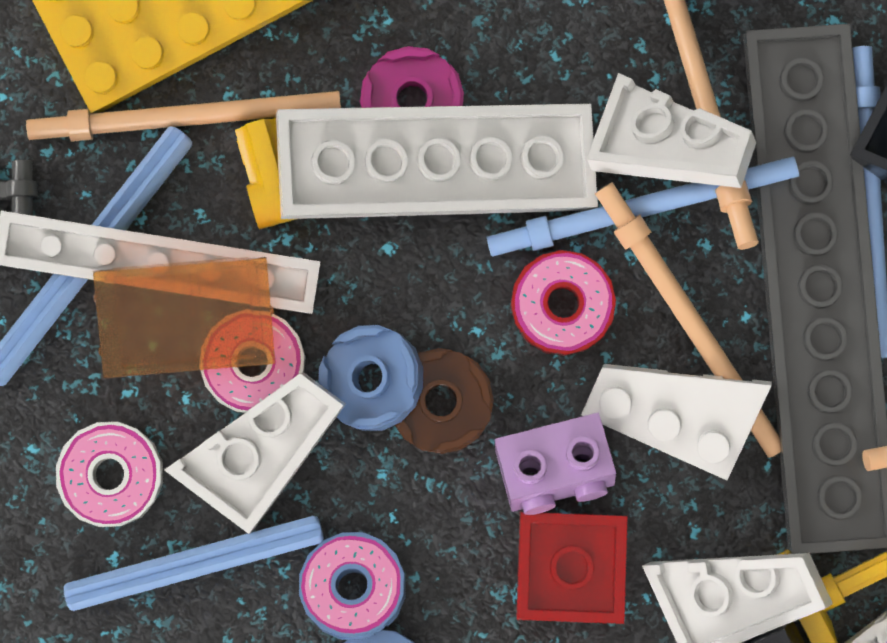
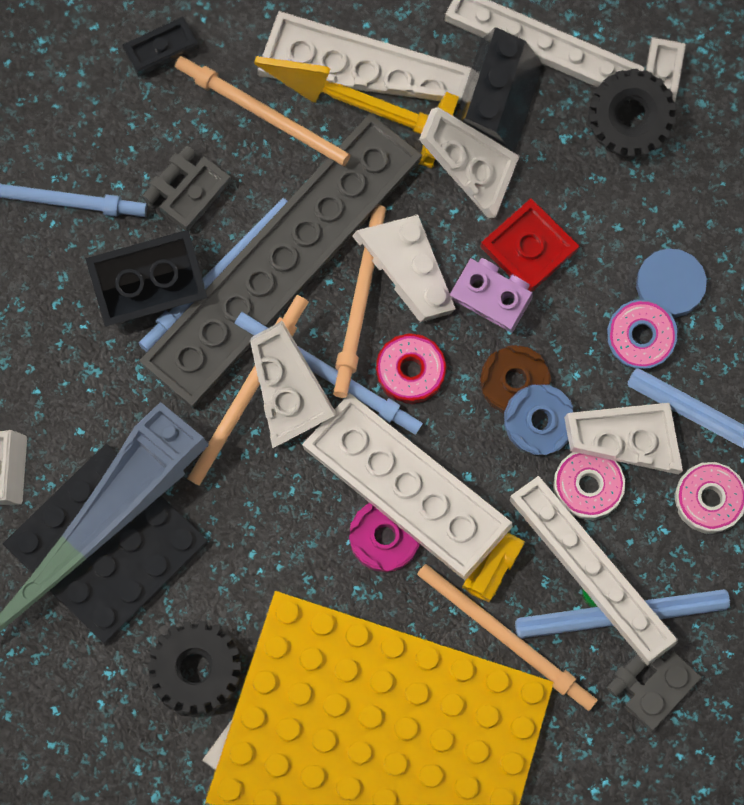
camera: 135 degrees left, 10 degrees down
(184, 316) = (604, 528): clear orange piece -> none

